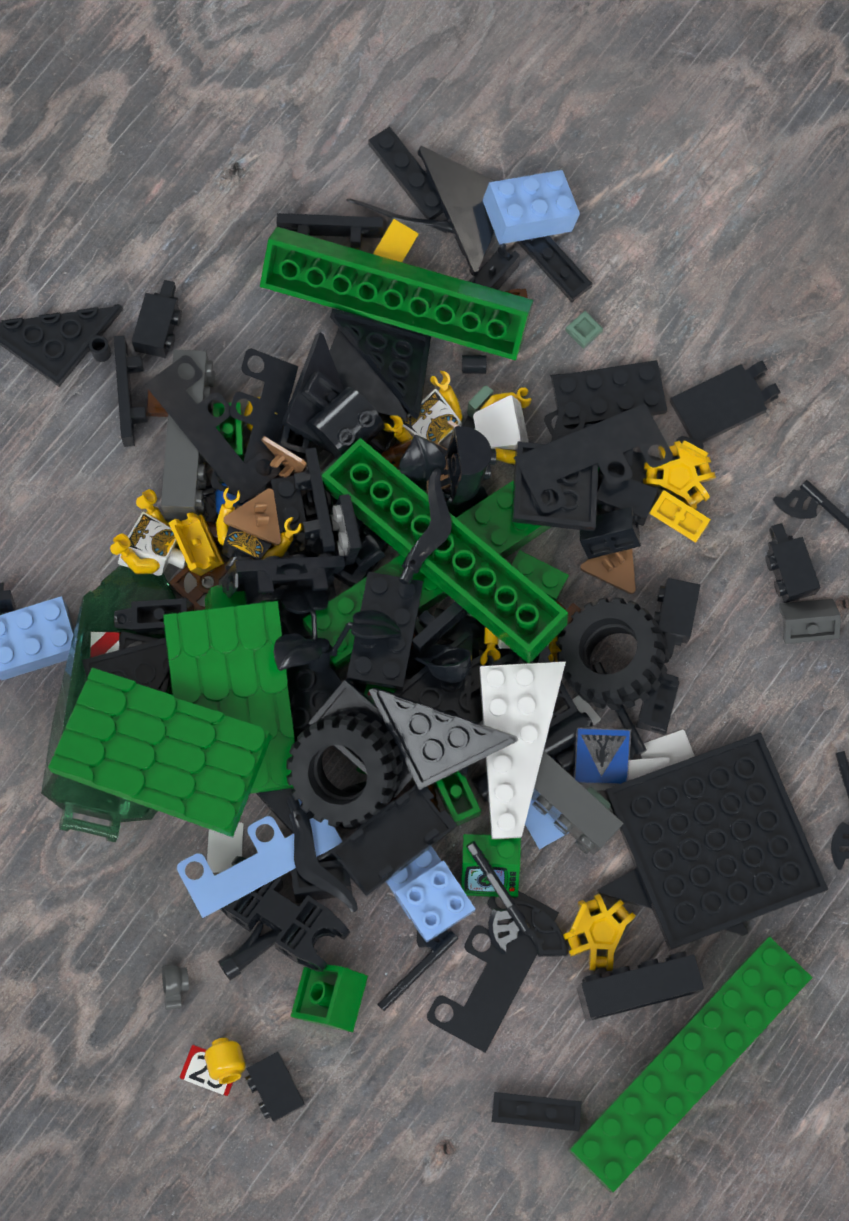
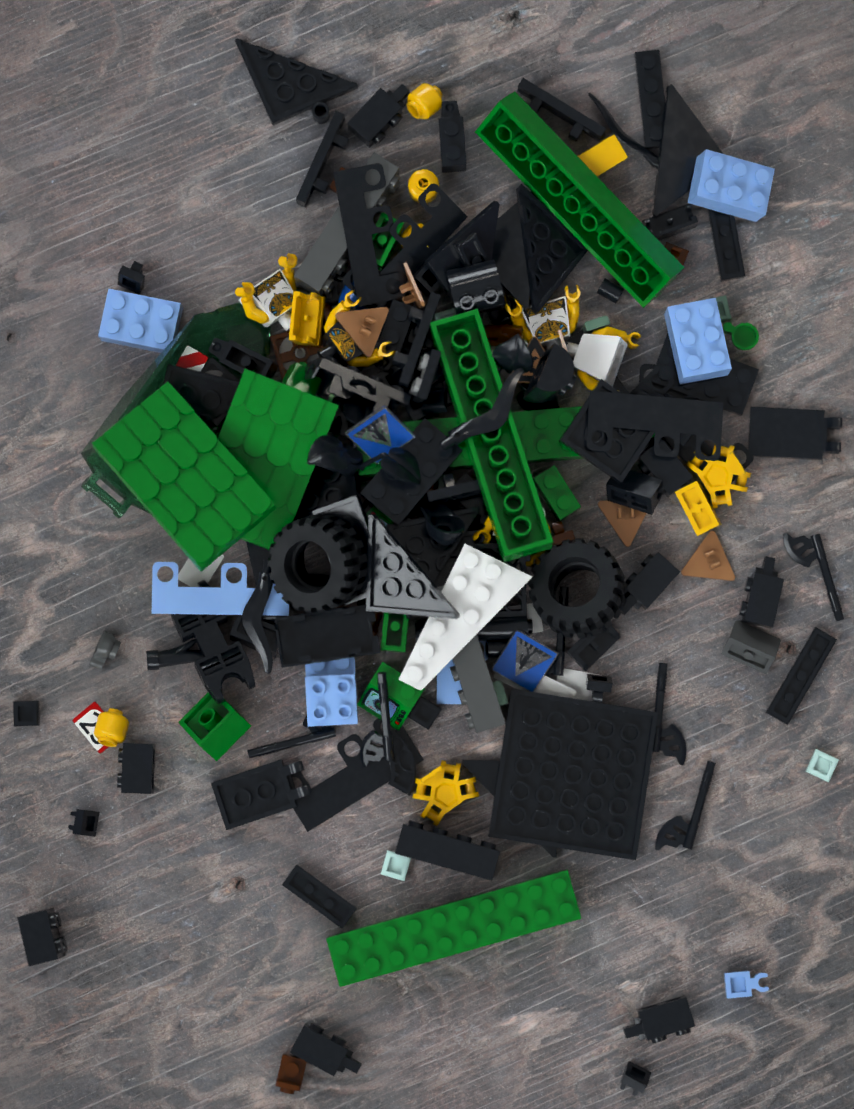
camera: 35 degrees right, 10 degrees up
(128, 1098) = (26, 713): none -> black tile
(195, 285) = (424, 101): none -> yellow head
(232, 362) = (425, 178): none -> yellow head
(241, 305) = (452, 138): none -> black hinge
(252, 1176) = (85, 822): none -> black tile
(333, 606) = (379, 433): none -> piece
(413, 1041) = (258, 793): none -> black tile
(533, 864) = (424, 713): none -> black tile
(586, 361) = (697, 341): none -> light blue brick
(594, 1035) = (395, 865): none -> light aqua tile
(625, 337) = (743, 336): none -> green piece
(687, 739) = (598, 685): none -> black tile
(719, 563) = (709, 561): none -> medium nougat piece
(783, 743) = (672, 729): none -> black piece

